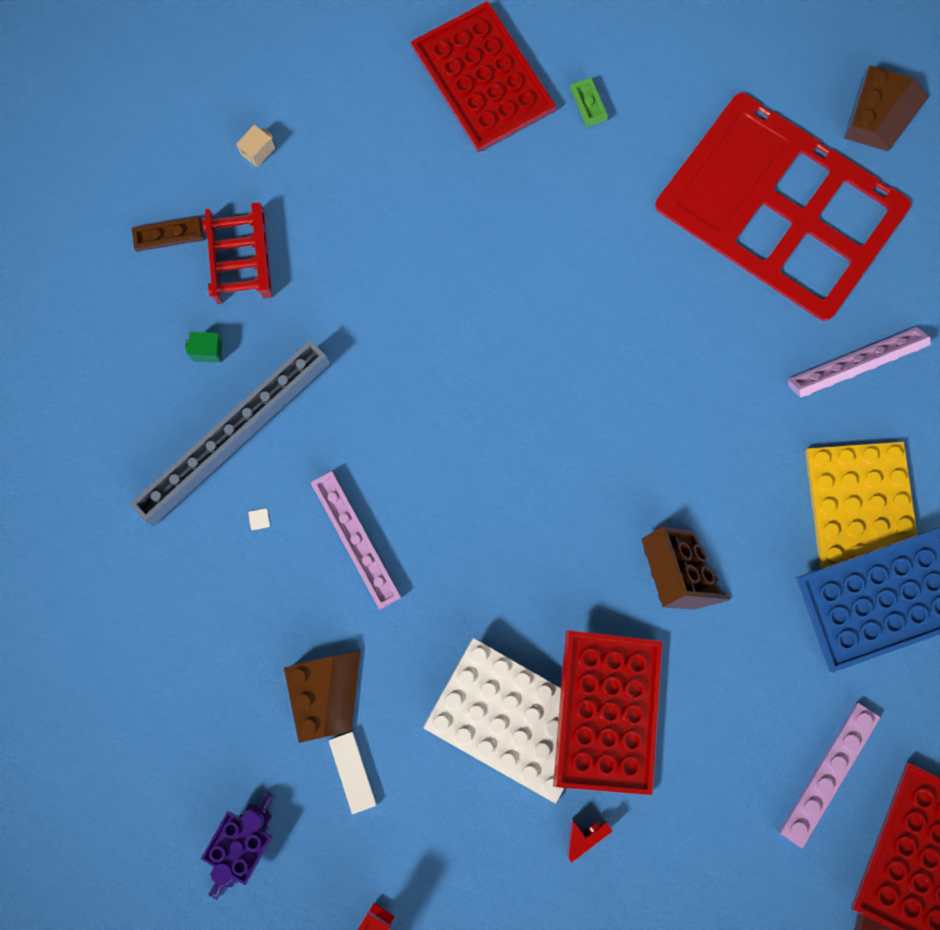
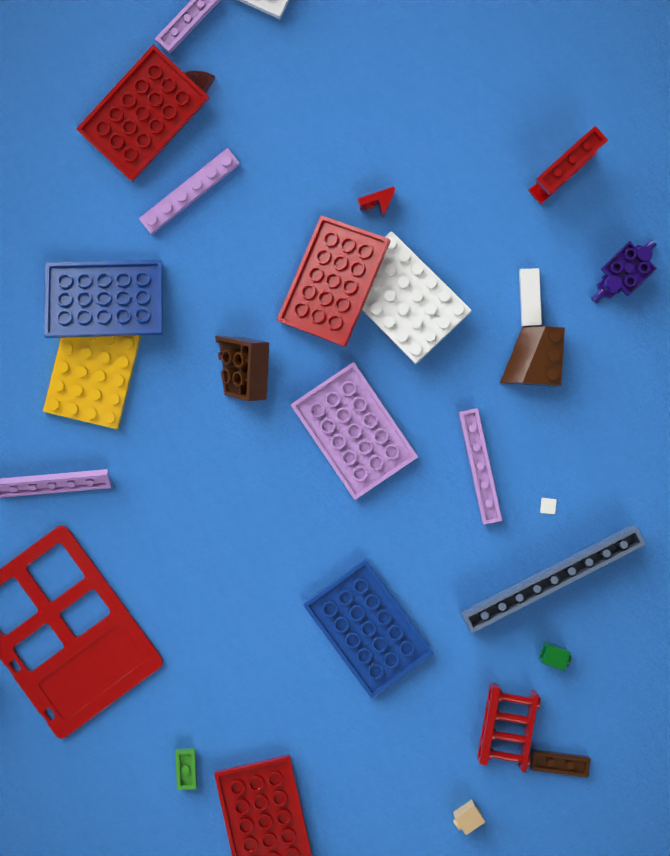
camera: 165 degrees left, 10 degrees up
(432, 313) = (368, 628): none -> blue plate
(522, 535) = (354, 430): none -> lavender plate

